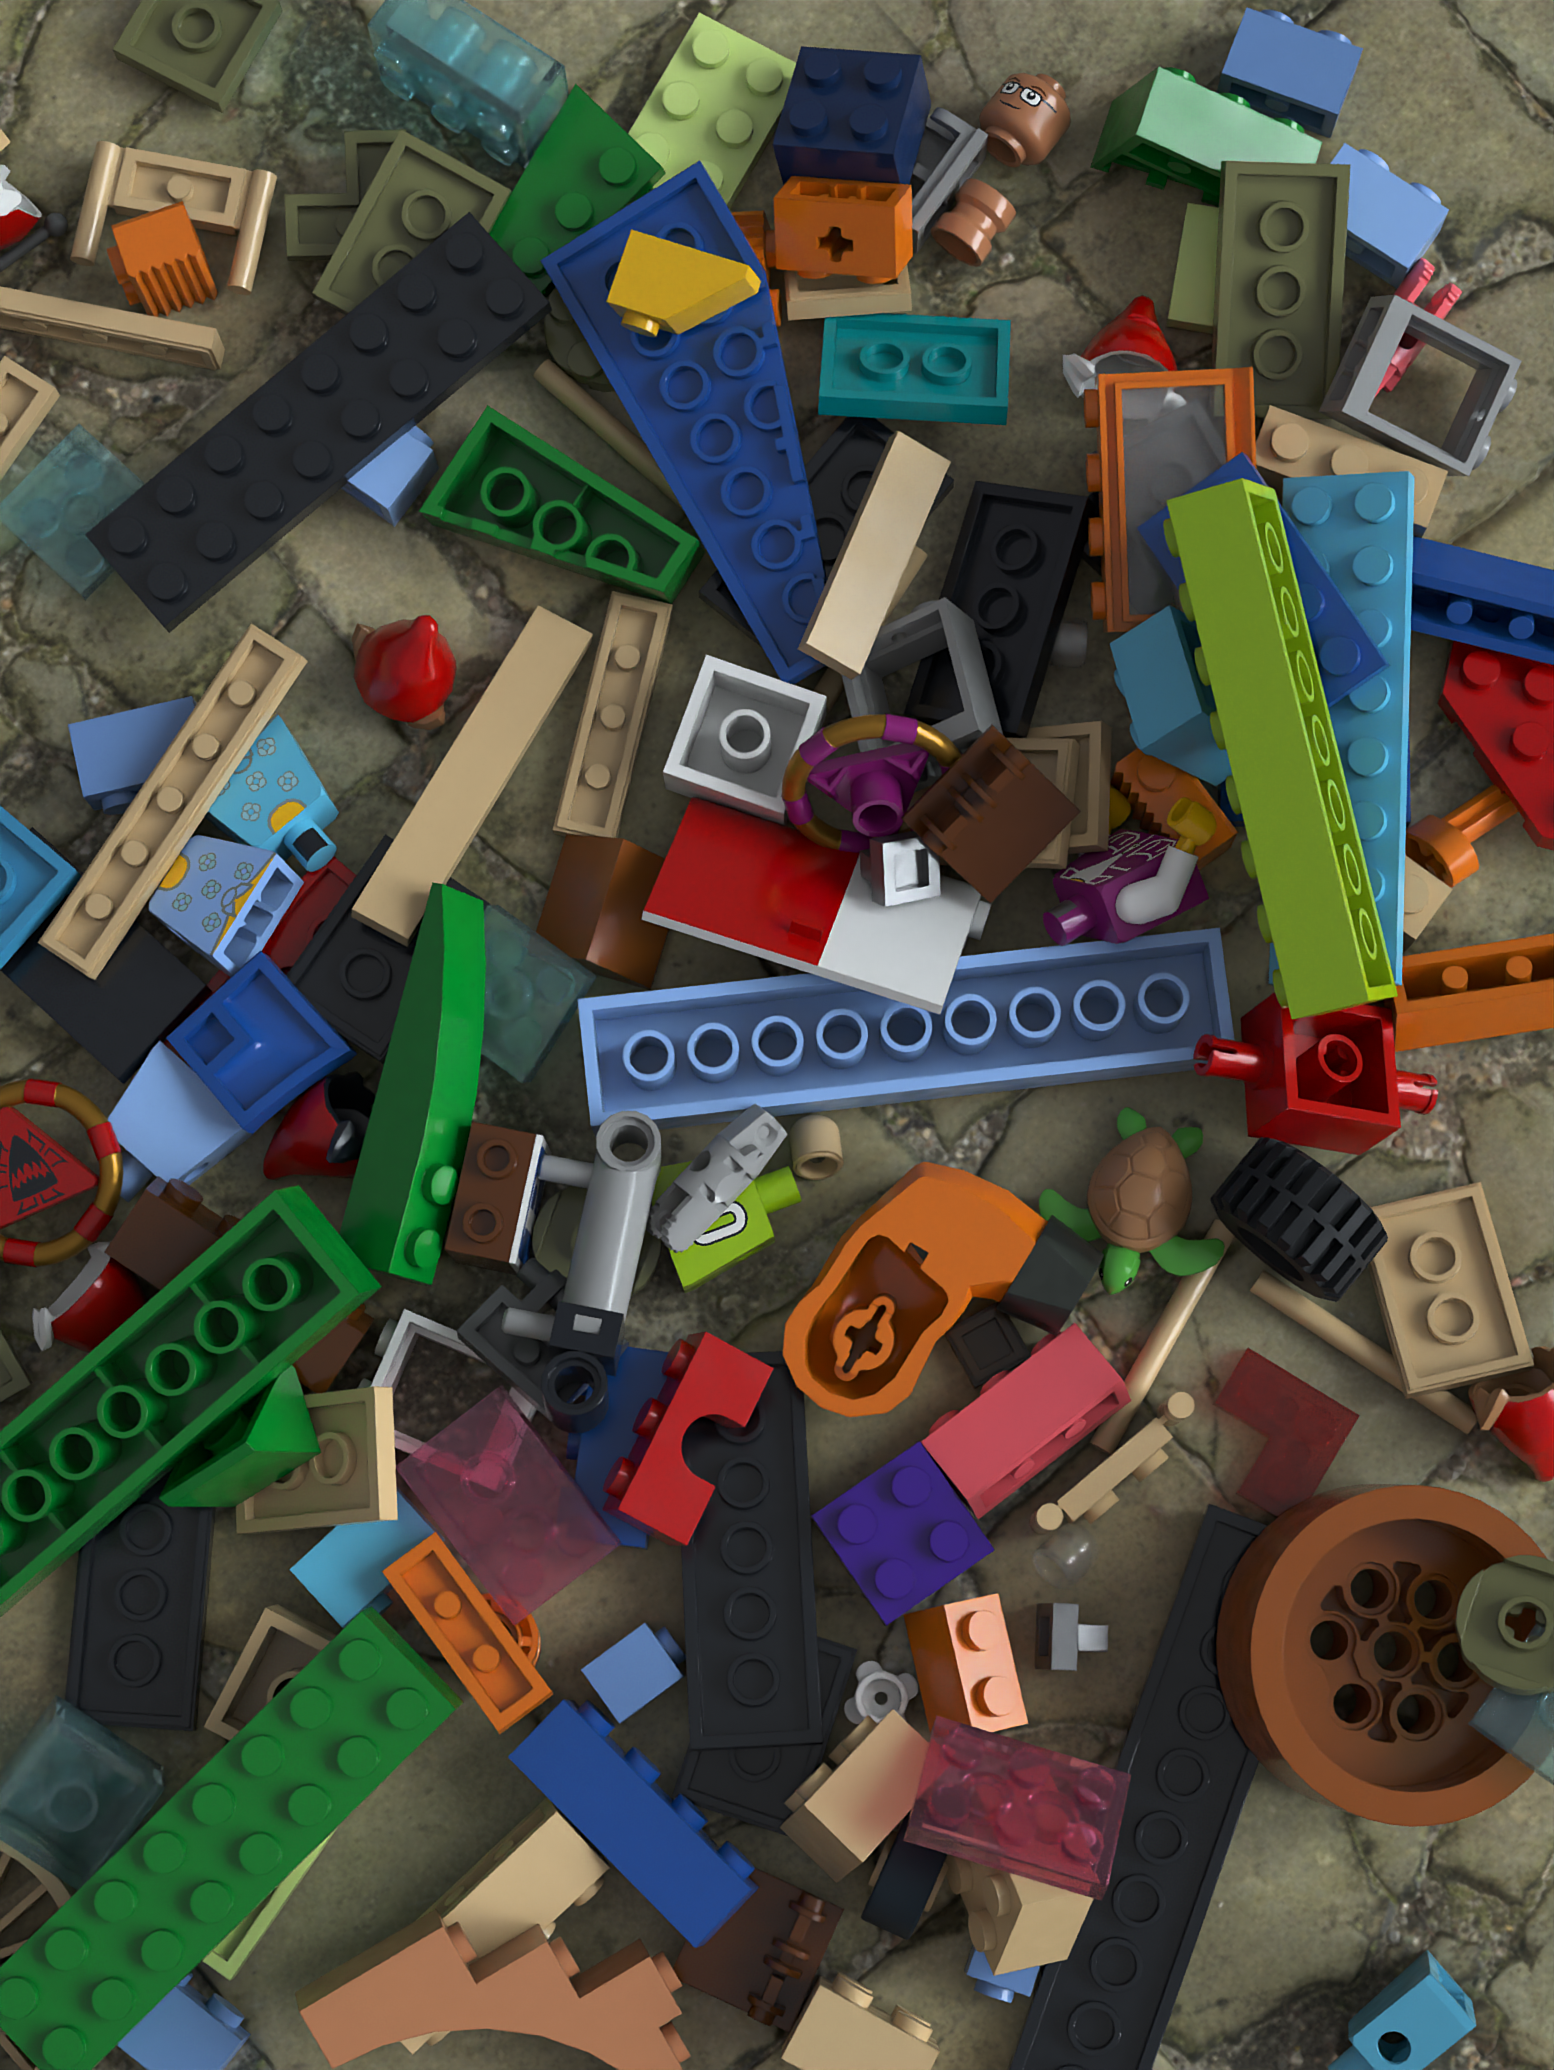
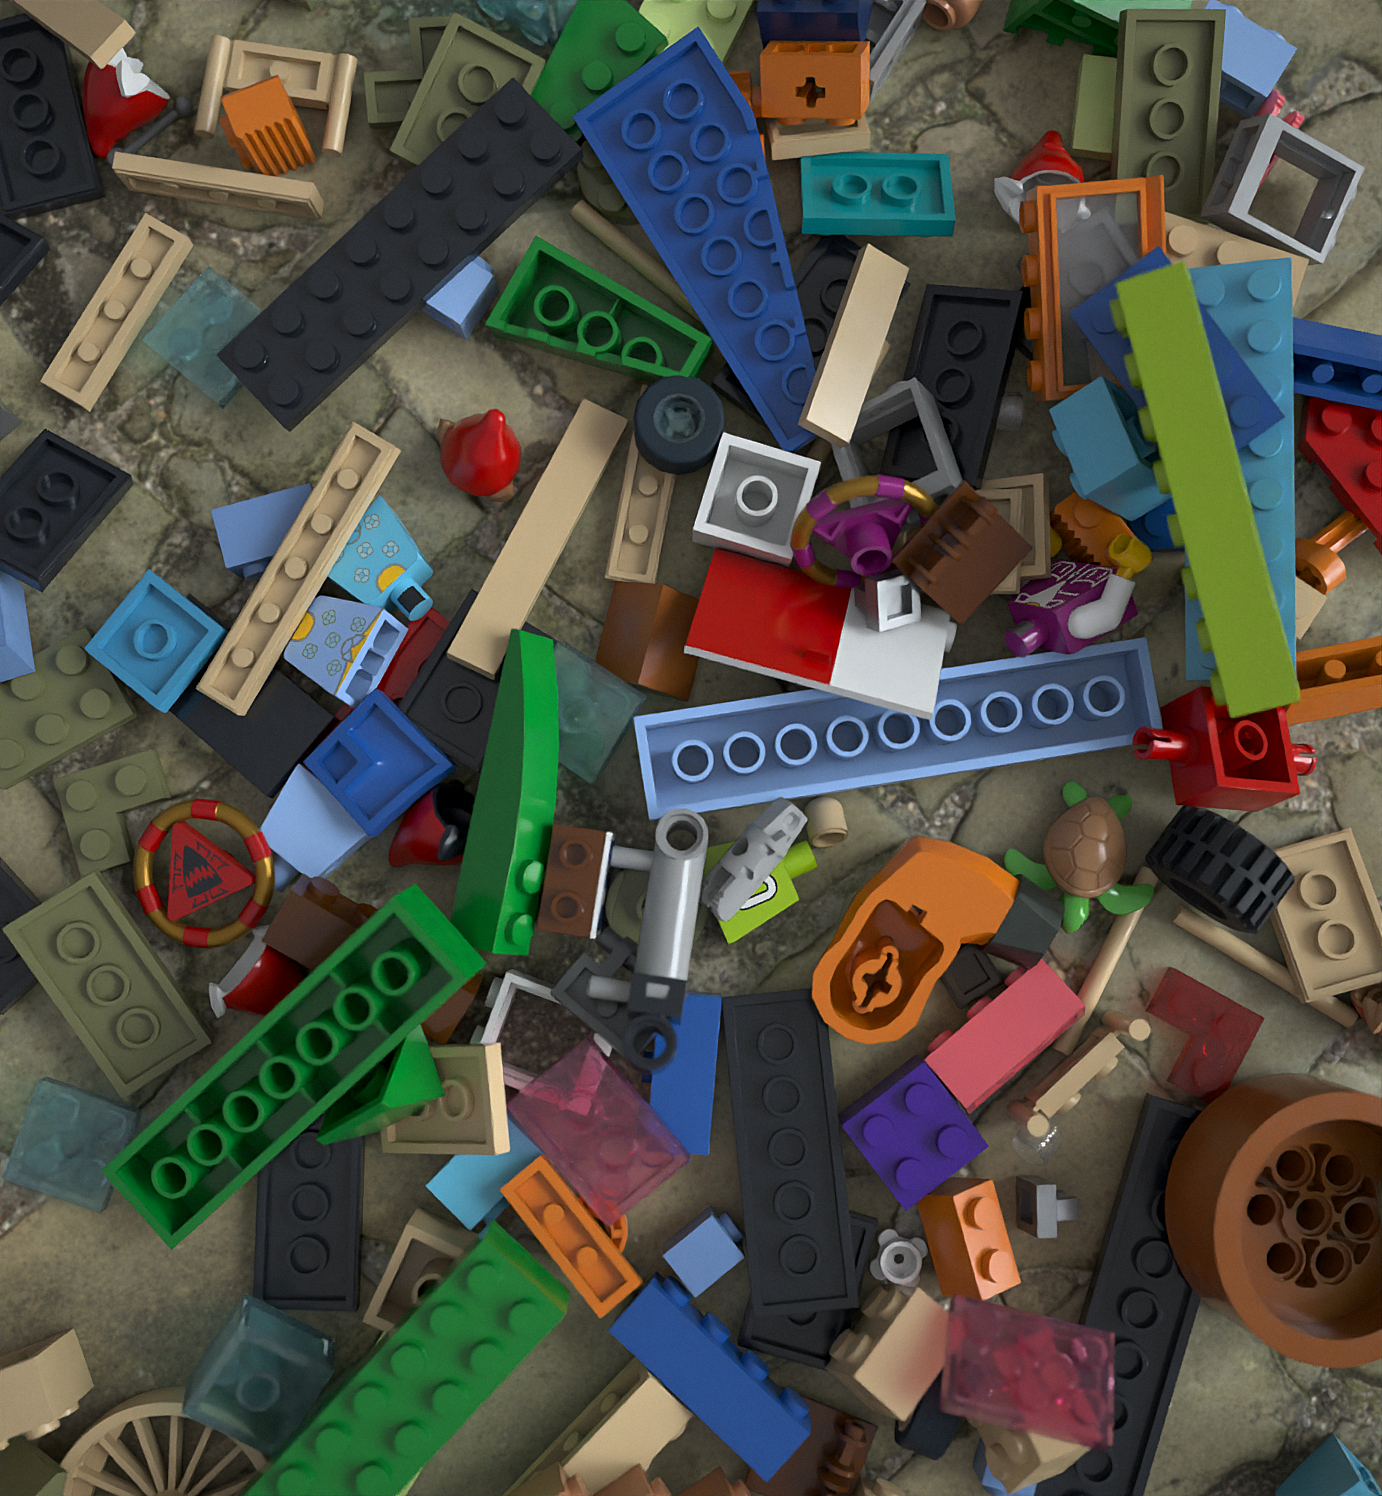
camera: 10 degrees left, 5 degrees up
(642, 623) = (678, 407): none -> black wheel
(654, 1484) = (713, 1106): red arch -> none
(675, 285) = (685, 128): yellow slope -> none
(973, 222) = (918, 70): nougat wheel -> none

